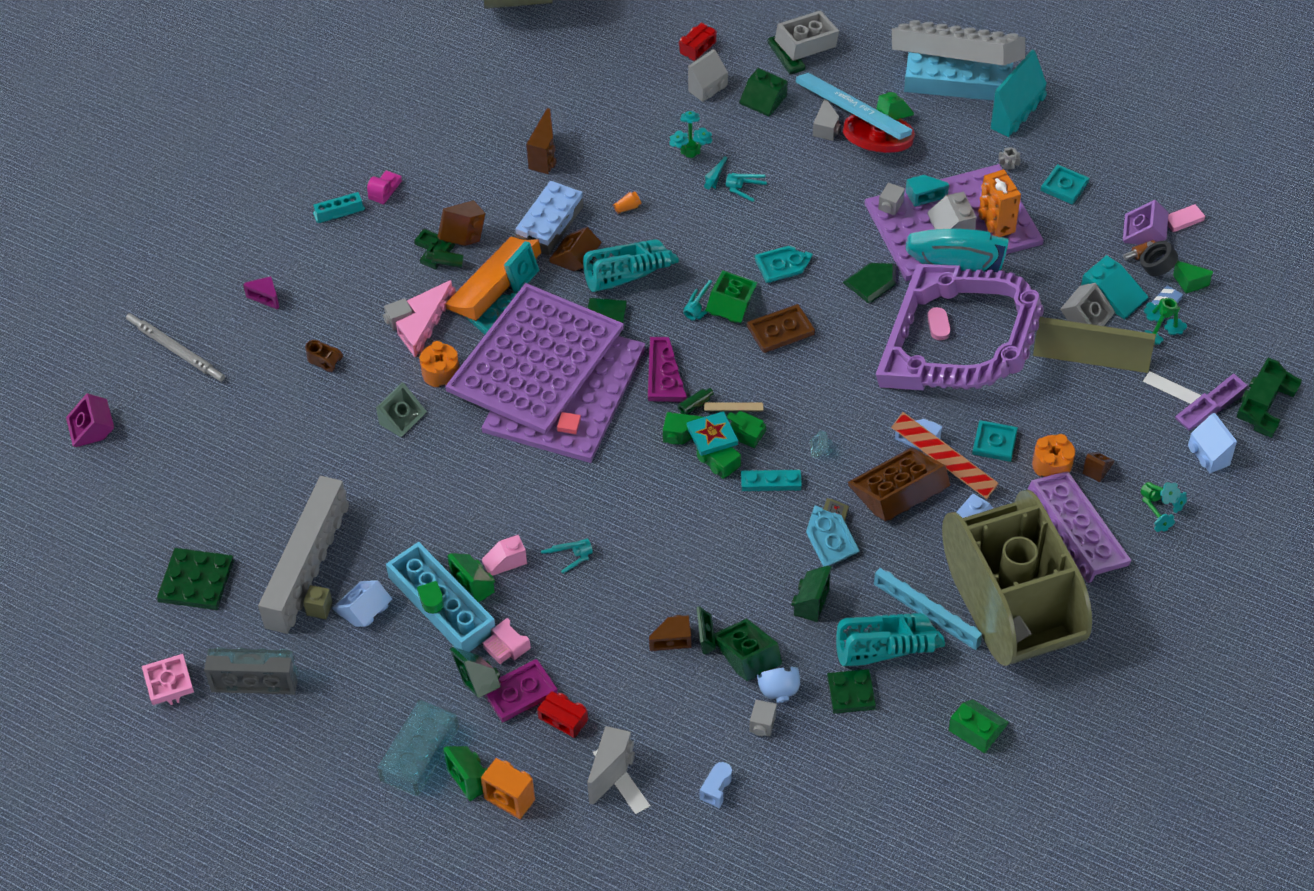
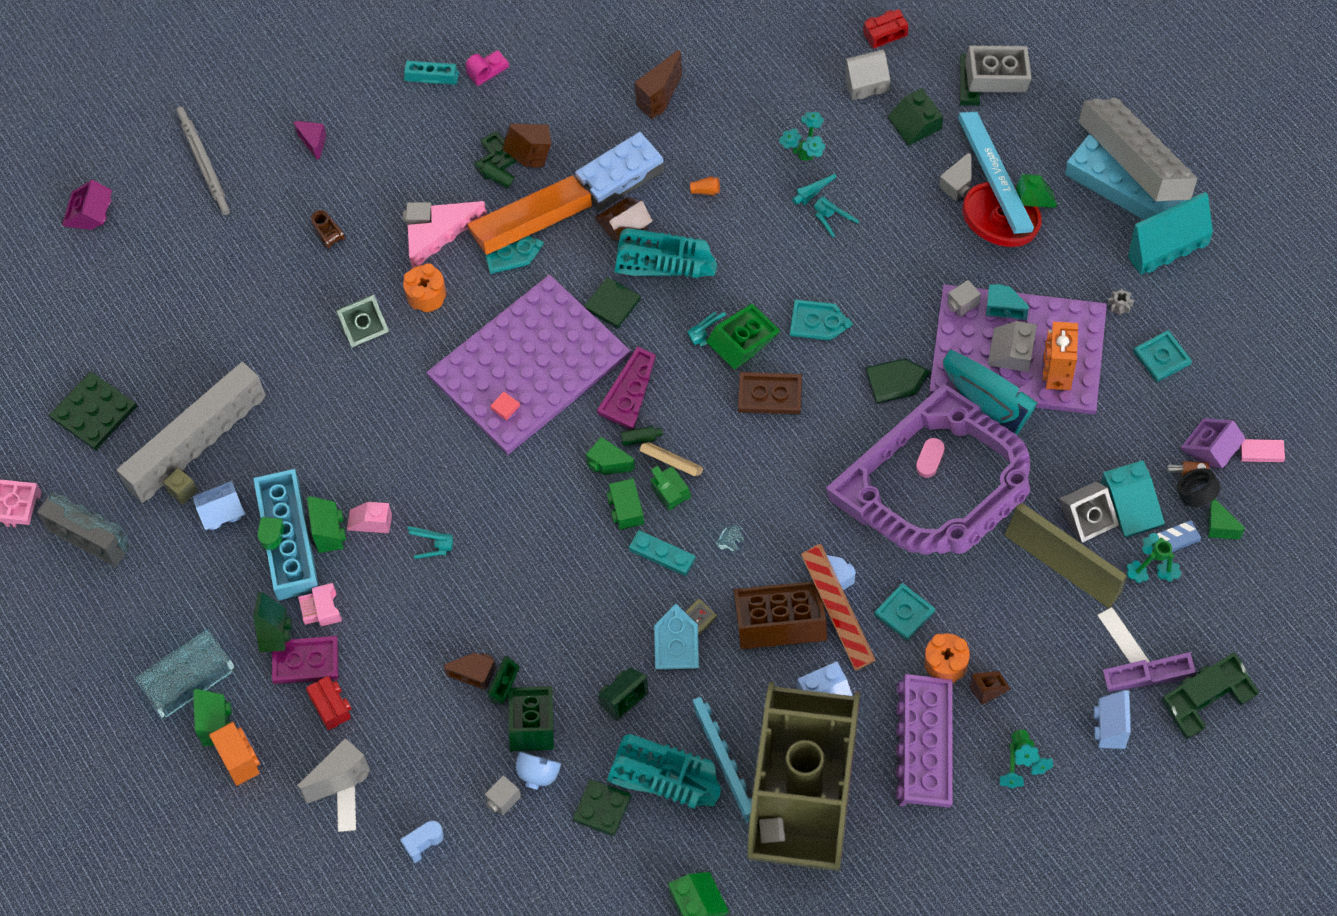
camera: 30 degrees right, 10 degrees up
(521, 267) = (557, 216): teal tile -> none
(534, 358) = (513, 321): medium lavender plate -> none
(712, 433) = (628, 480): teal tile -> none

